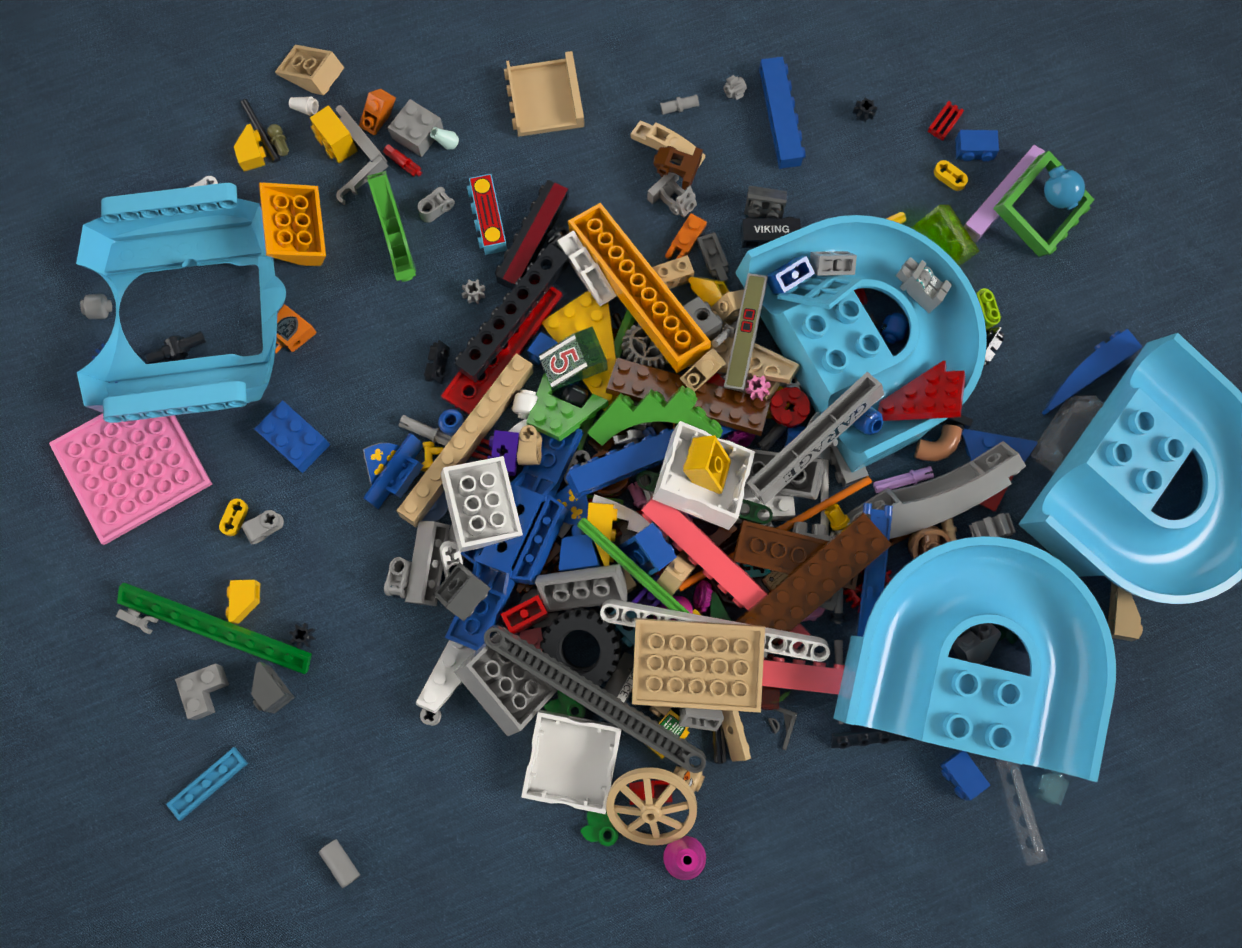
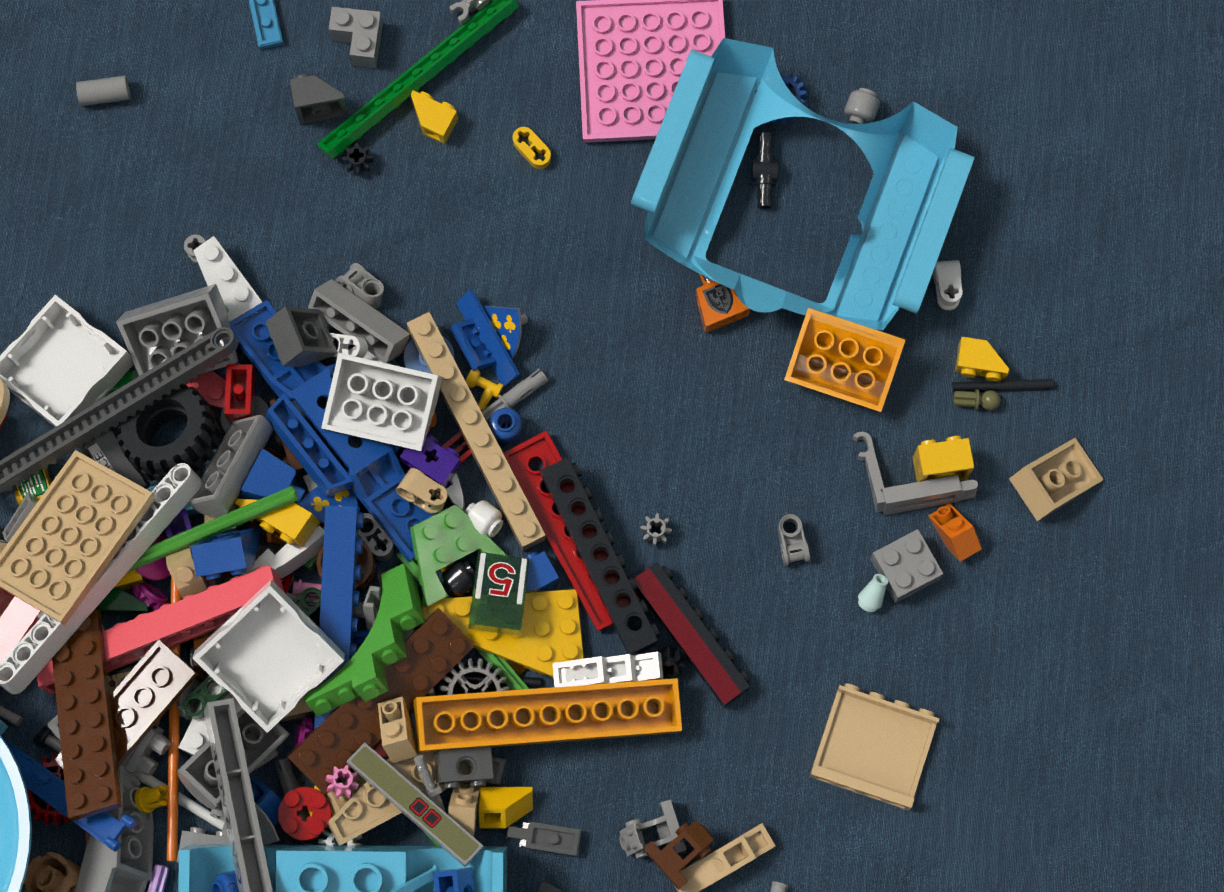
camera: 120 degrees right, 0 degrees up
(260, 527) = (502, 170): light grey piece -> none
(292, 436) = (587, 247): blue brick -> none
(306, 105) = (1008, 451): white cone -> none
(392, 226) = (775, 473): bright green arch -> none
(399, 158) = (873, 531): red piece -> none
(438, 354) = (582, 440): black hinge -> none
(487, 213) = (746, 595): brick -> none
(675, 272) = (550, 773): tan brick -> none
(687, 236) = (591, 820): orange hinge -> none
(707, 463) = (280, 667): yellow slope -> none

